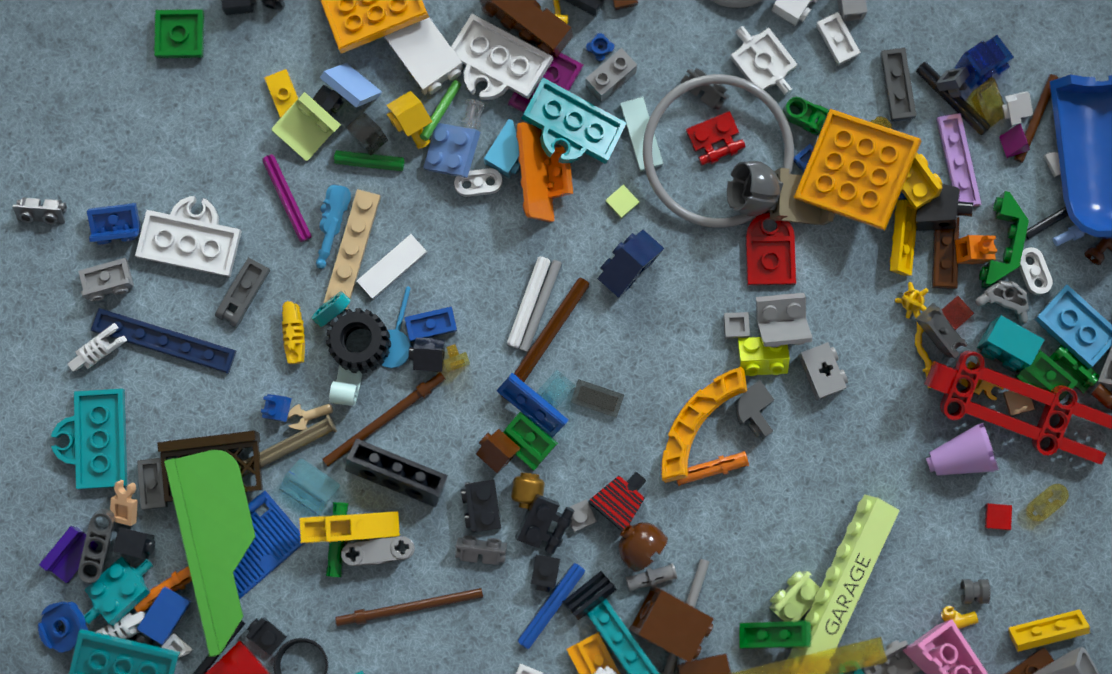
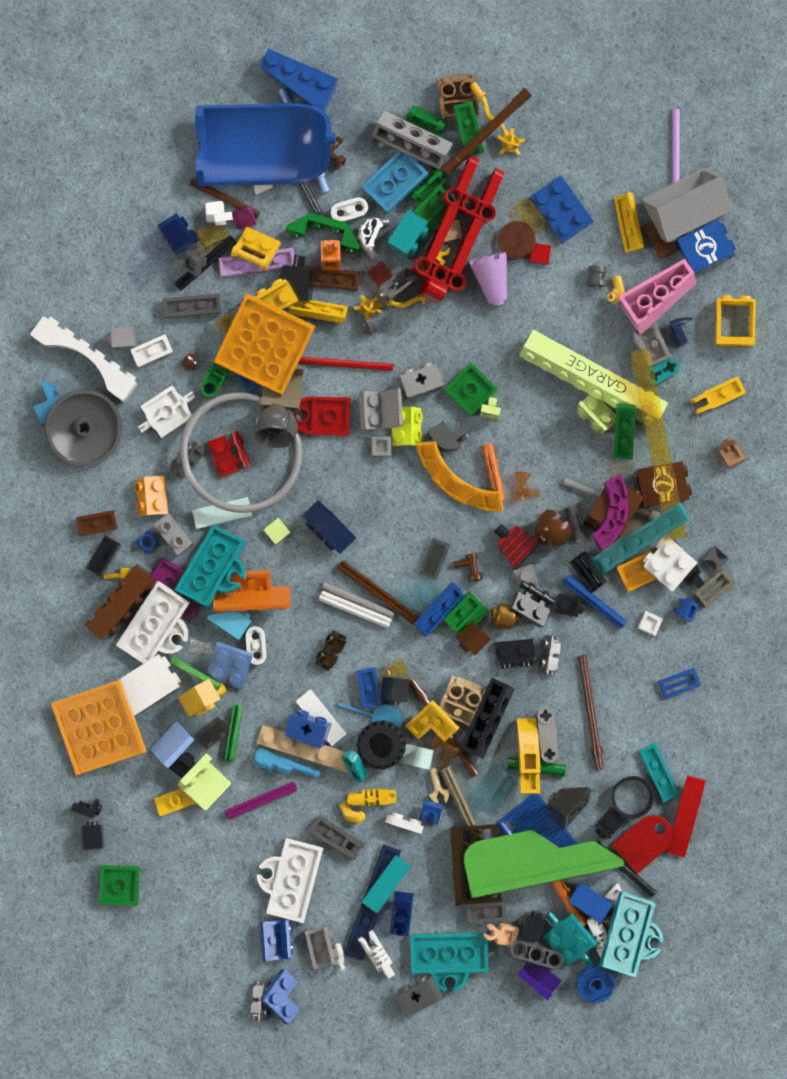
camera: 85 degrees left, 5 degrees up
(43, 226) = (276, 997): none -> plate
(44, 401) = (411, 1003): none -> dark grey brick
(96, 304) = (341, 956): none -> white piece
(148, 376) = (401, 913): none -> clear blue slope
(184, 355) = (386, 884): none -> teal tile
(264, 366) = (412, 825): none -> white plate
(270, 308) = (351, 816): none -> yellow arm
(287, 580) = (567, 804): none -> clear smoke slope
(353, 428) = (450, 750): none -> clear orange piece
(375, 249) = (298, 730): none -> blue brick
(393, 405) = (432, 718): none -> yellow plate
(411, 439) = (457, 700): none -> tan slope
(484, 276) = (334, 642): none -> dark brown hinge
(596, 443) = (471, 562): none -> reddish brown piece
(658, 47) = (151, 496): none -> light orange bracket
(664, 627) = (616, 515): none -> magenta tile
(688, 507) = (522, 492): none -> clear orange piece
(791, 460) = (490, 410): none -> yellowish green tile
(816, 434) = (470, 389): none -> green plate
(827, 85) = (189, 362): none -> reddish brown plate
(838, 275) = (346, 363): none -> red bar
(888, 301) = (368, 326): none -> dark grey plate
(982, 160) = (259, 244): none -> yellow plate
(1014, 485) = (516, 239): none -> copper tile
(1058, 541) = (561, 209): none -> blue plate

